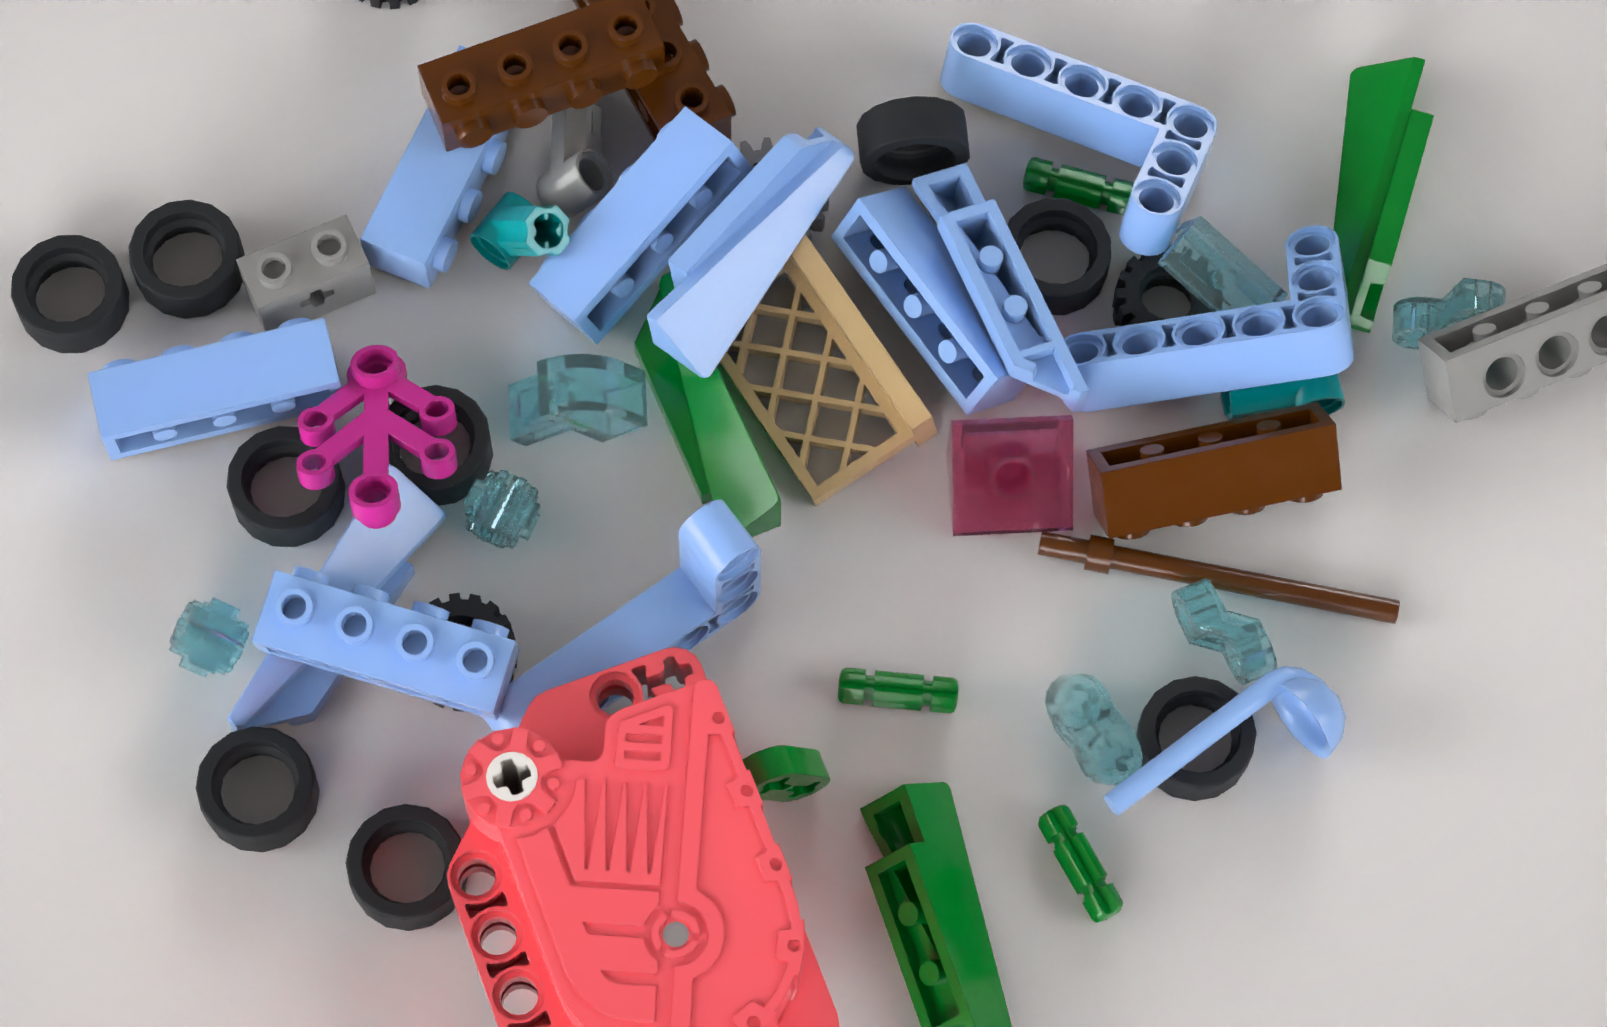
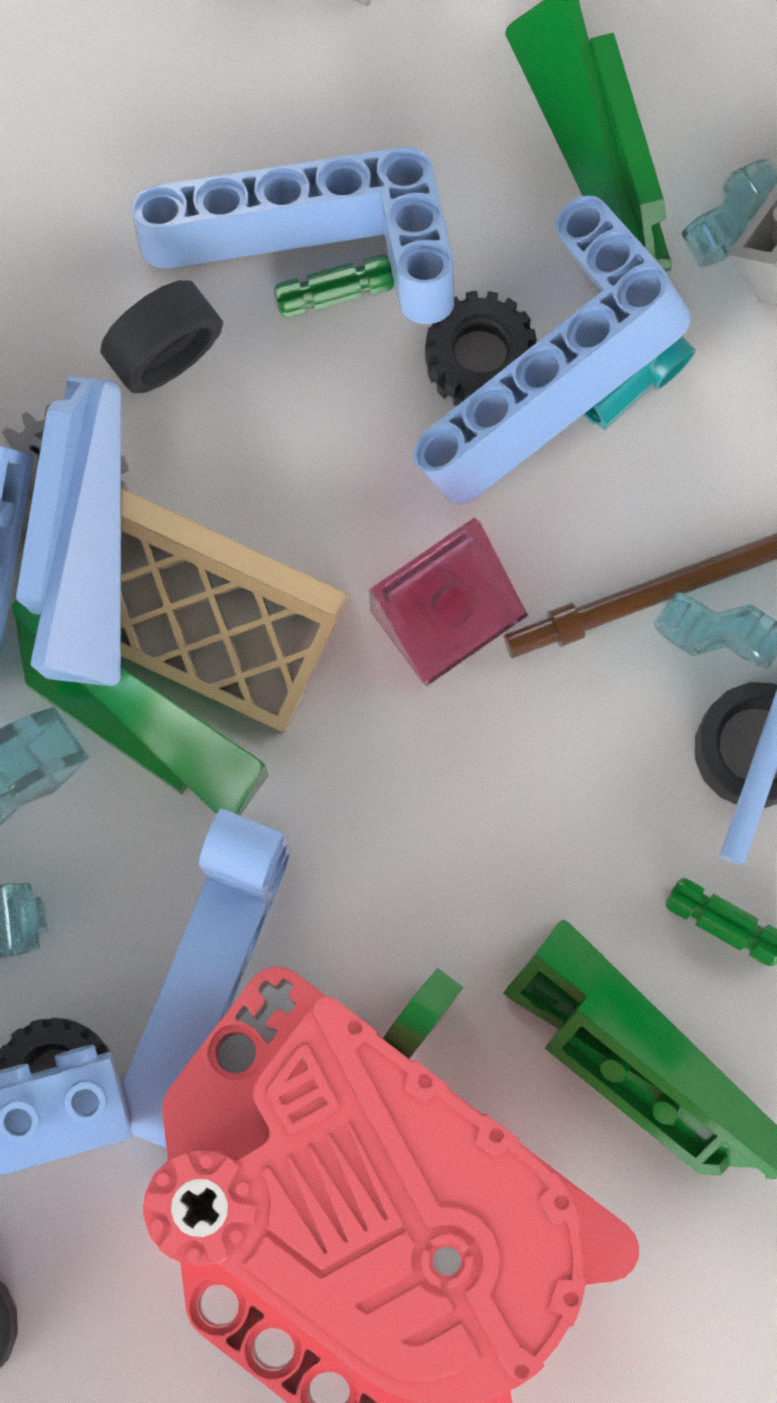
camera: 30 degrees left, 10 degrees up
(366, 841) = (84, 1314): black tyre -> none
(898, 690) = (468, 863): green axle -> none
(918, 284) = (276, 476): light blue brick -> none
(1001, 284) = (330, 429): light blue wedge -> none
(1088, 228) = (349, 322): black tyre -> none
(1093, 728) = (693, 803): clear light blue piece -> none
(1214, 471) = (624, 486): reddish brown brick -> none
(1217, 269) = (517, 297): clear light blue panel -> none

